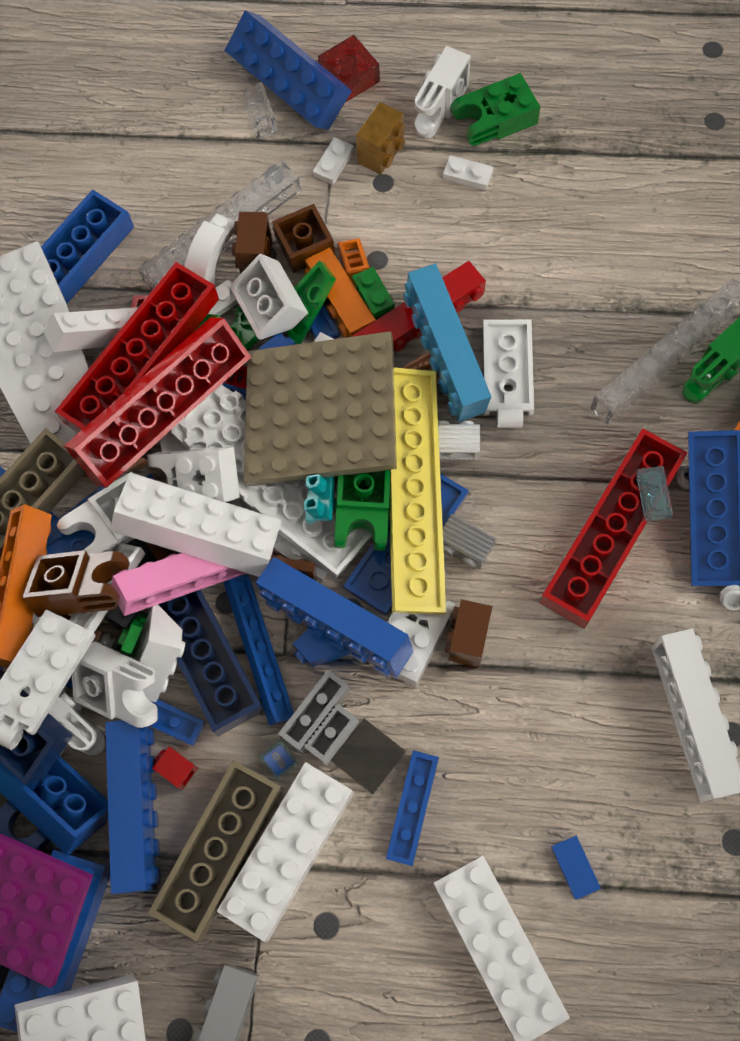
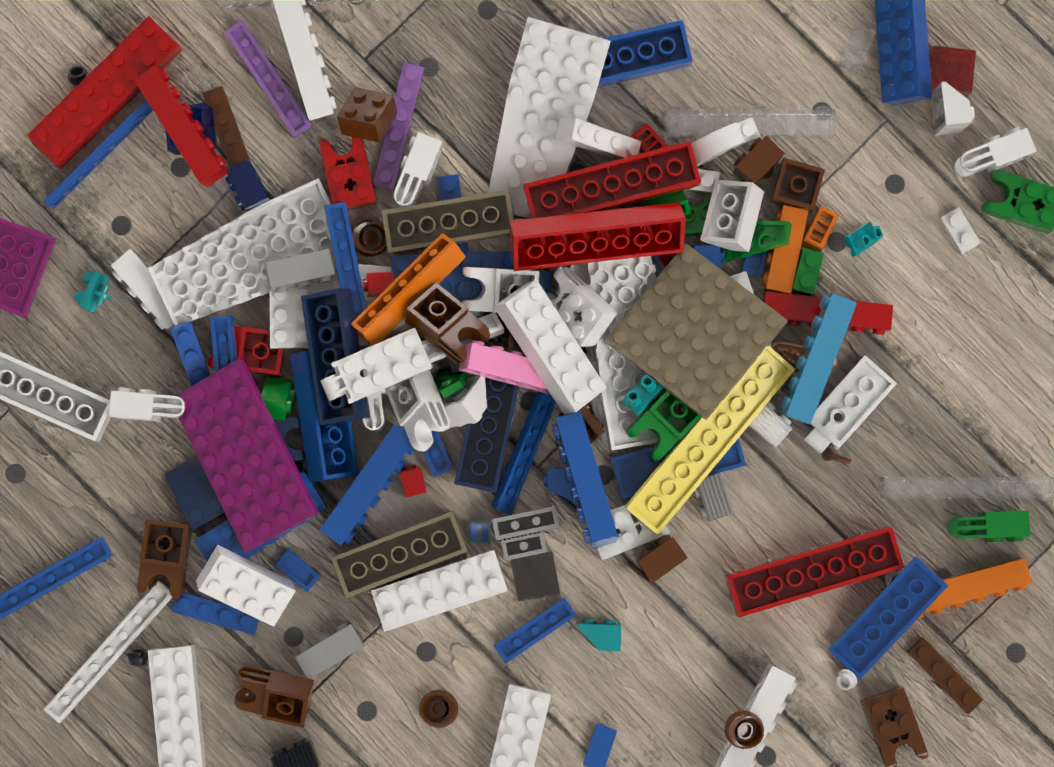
camera: 30 degrees right, 15 degrees up
(129, 958) = (297, 570): none -> blue tile
(333, 161) = (874, 136): white plate -> none
(372, 80) = (950, 110): none -> white slope
(380, 138) = (919, 154): pearl gold brick -> none
(387, 973) = (438, 708): none -> reddish brown piece
(394, 235) = (863, 238): none -> teal hips
(480, 755) = (603, 636): none -> teal slope
(529, 419) = (836, 457): none -> reddish brown hand
(654, 493) = (856, 575): clear light blue plate -> none
(695, 718) = (744, 729): none -> reddish brown piece

